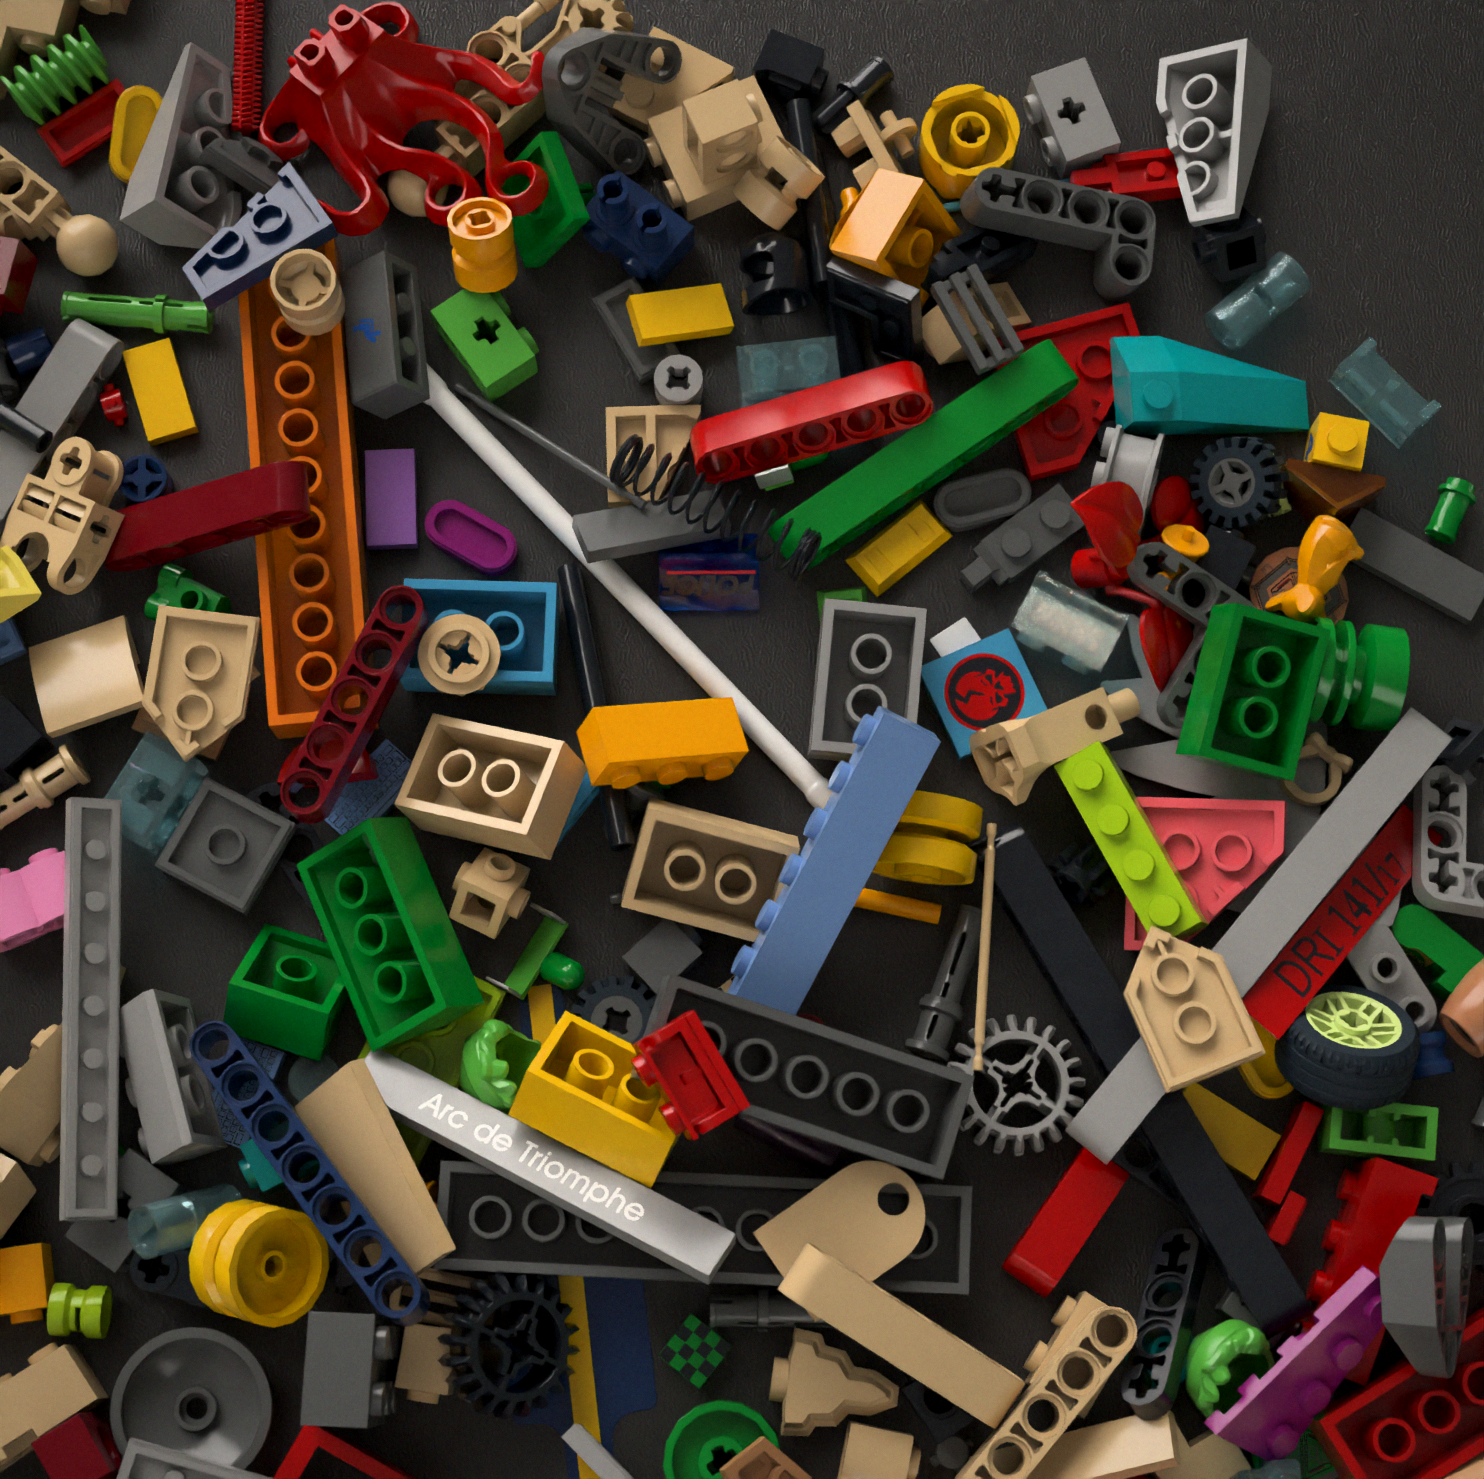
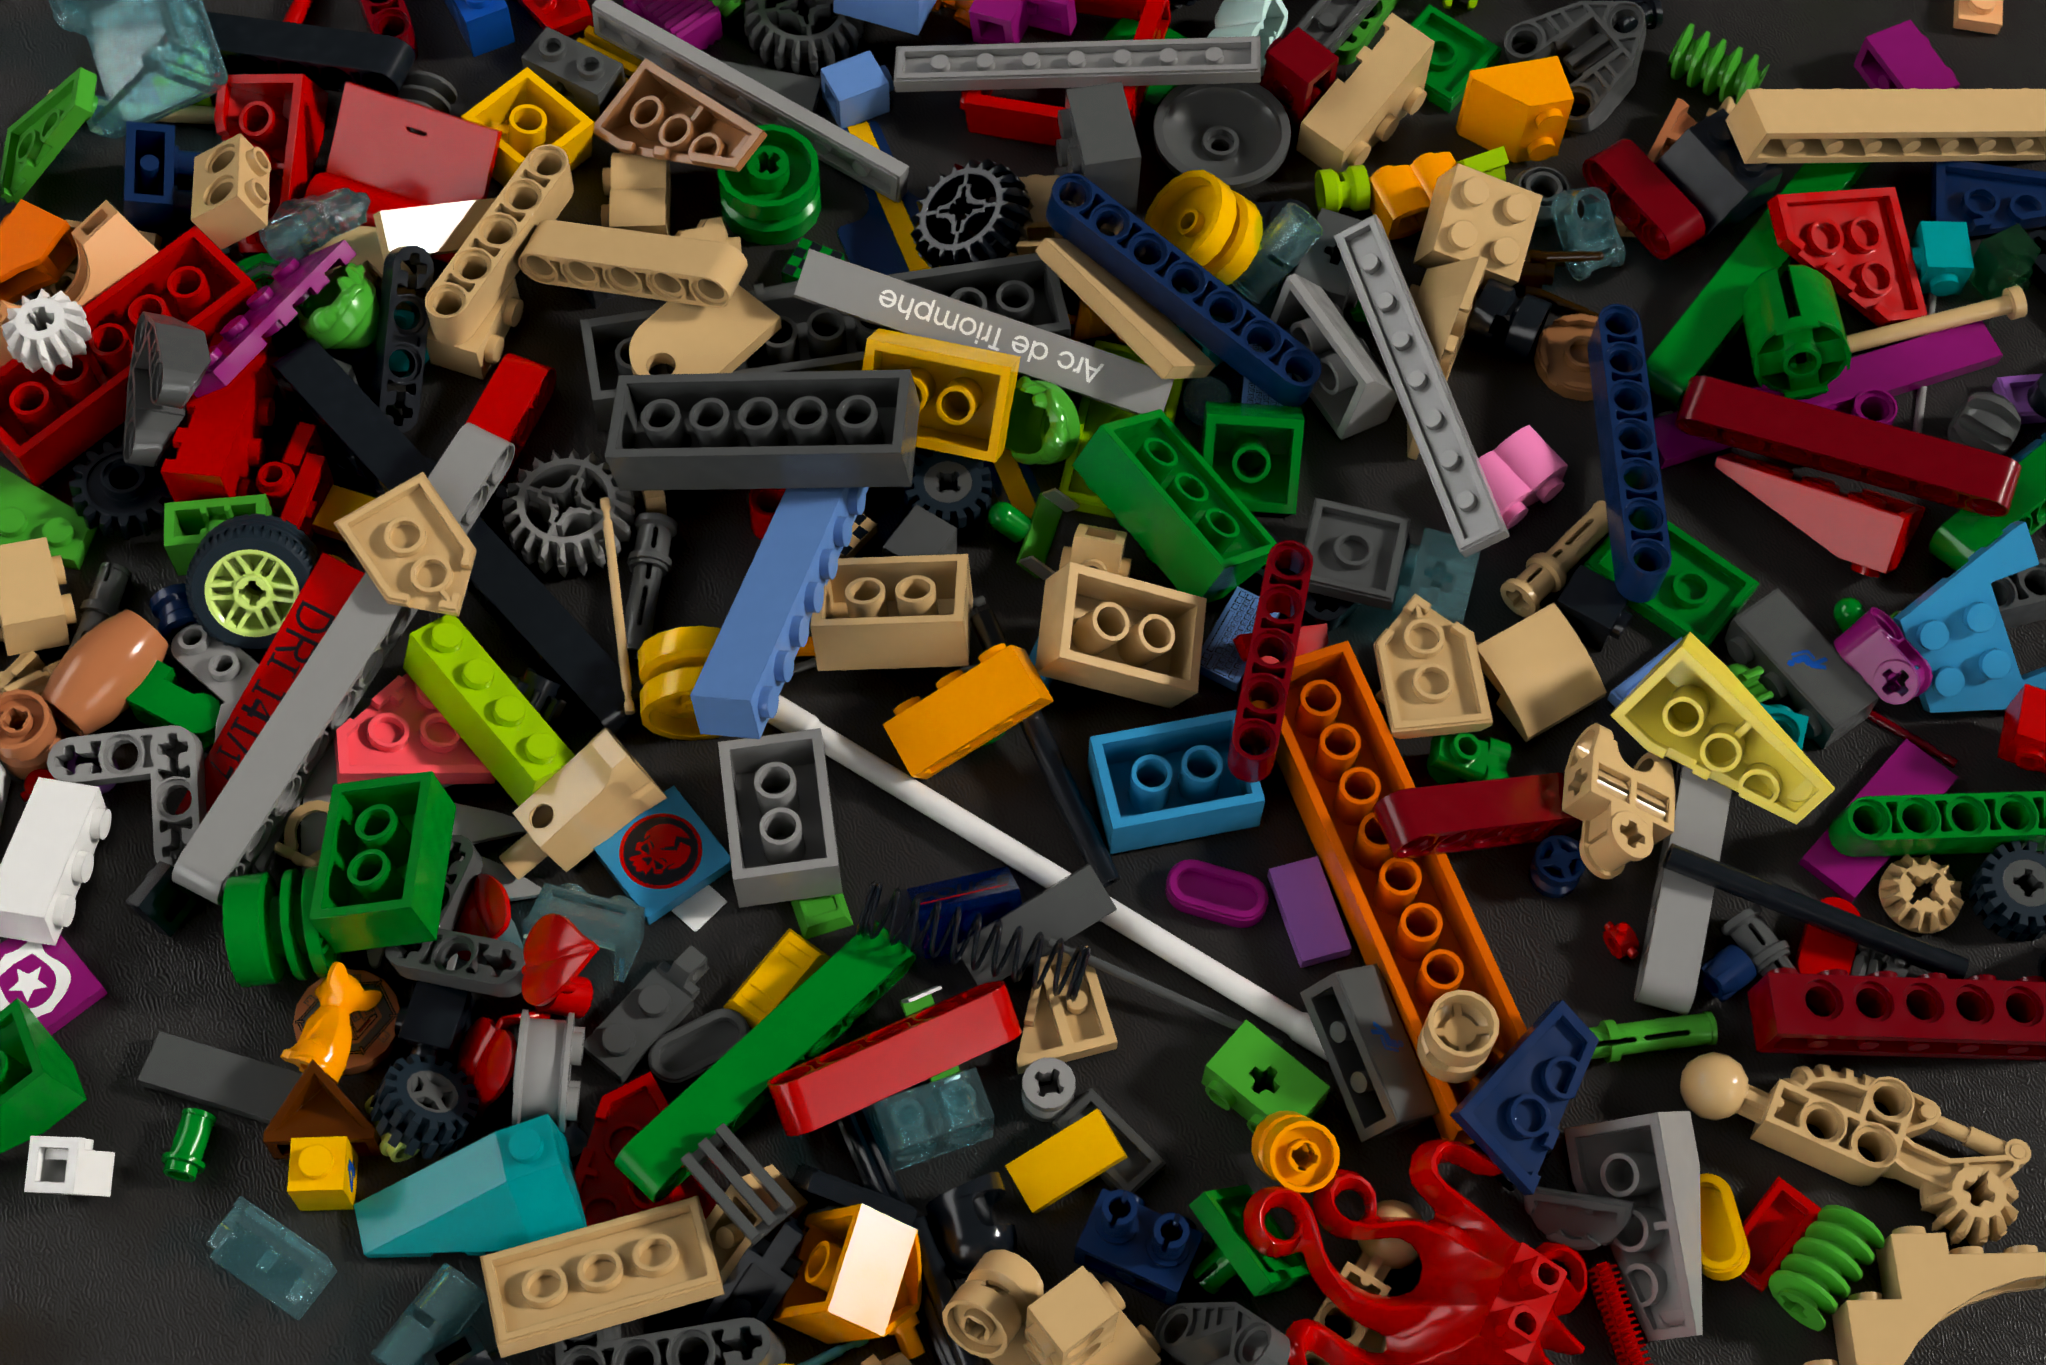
camera: 165 degrees right, 15 degrees down
(160, 391) = (1580, 966): yellow tile -> none
(452, 633) = (1171, 714): tan gear -> none
(689, 1076) = (863, 368): red hinge -> none
(1107, 286) = (600, 1276): none -> tan tile
(1185, 541) = (474, 1013): light orange piece -> none
(1321, 1171) = (276, 482): none -> red pin

